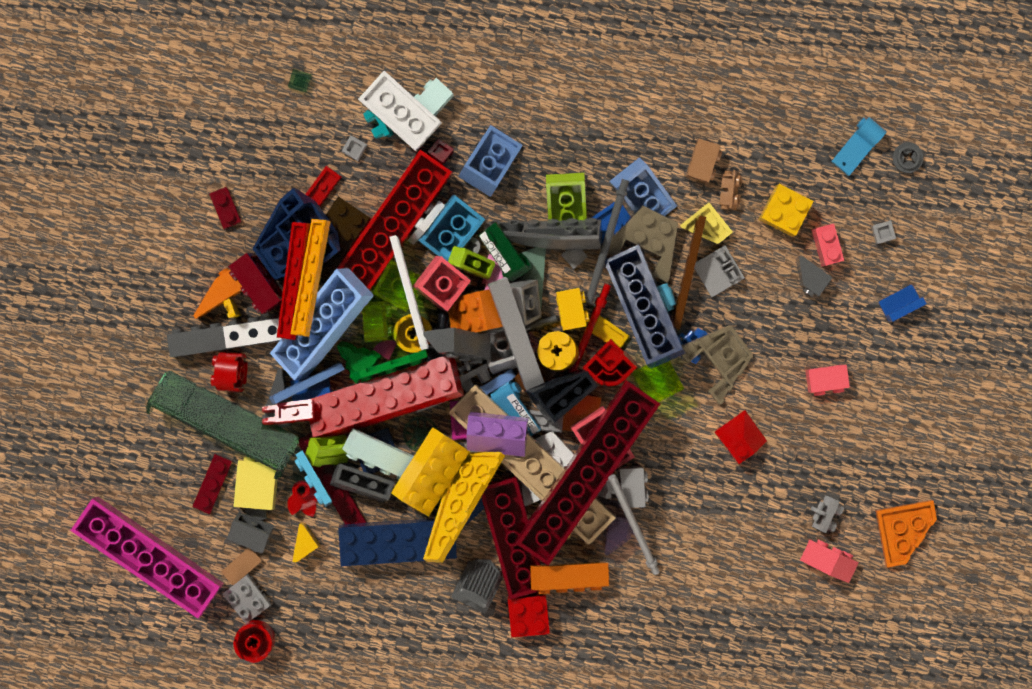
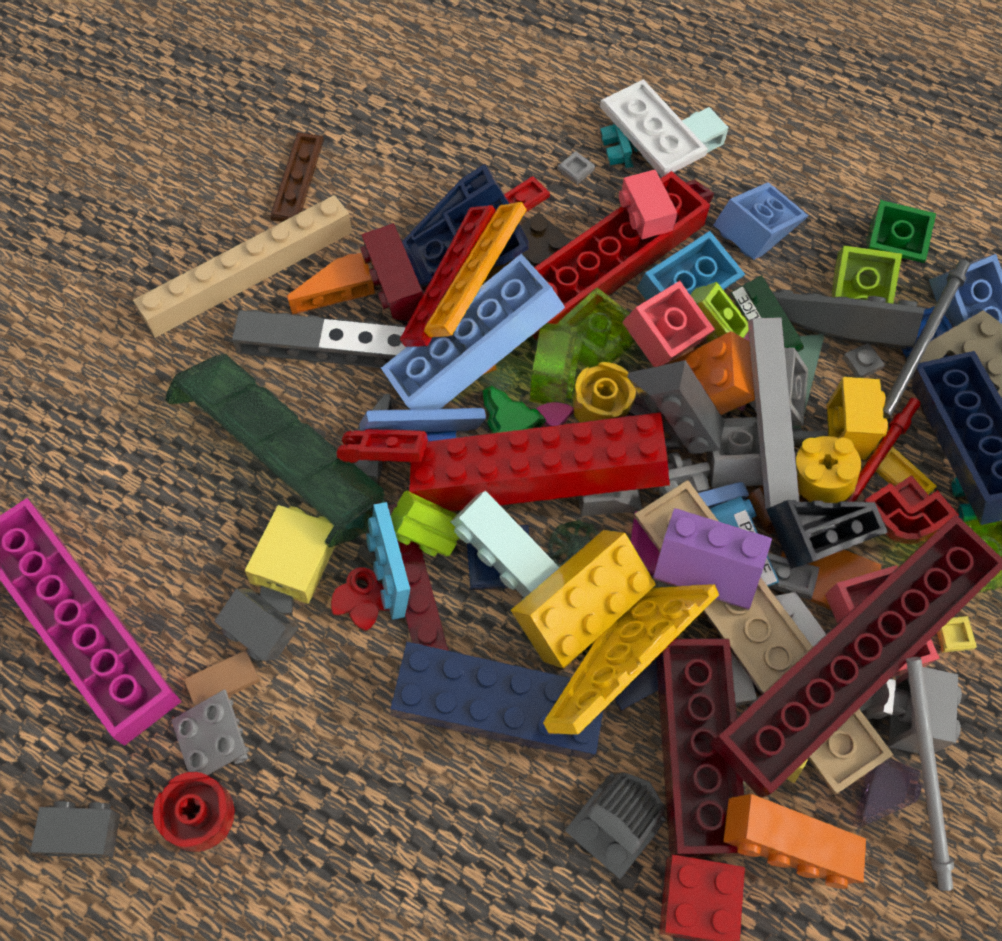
camera: 10 degrees right, 25 degrees down
(157, 295) = (243, 266): none -> tan brick
(164, 209) = (297, 176): none -> reddish brown tile
(196, 665) = (76, 831): none -> dark grey brick
(212, 483) = (224, 539): dark red plate -> none
(225, 207) = (380, 193): dark red plate -> none
(229, 372) = (311, 380): red brick -> none
(232, 309) = (345, 303): yellow tile -> none
(299, 81) = (525, 83): clear green tile -> none
(305, 542) = (338, 669): yellow slope -> none
(362, 483) = (465, 589): dark grey brick -> none
(390, 366) = (562, 411): green plate -> none
(409, 190) = (647, 204): none -> coral brick
(416, 317) = (617, 334): white tile -> none
(423, 224) = (648, 261): white wing -> none
(584, 156) = (901, 230): none -> green slope
(650, 430) = (956, 635): none -> light yellow tile

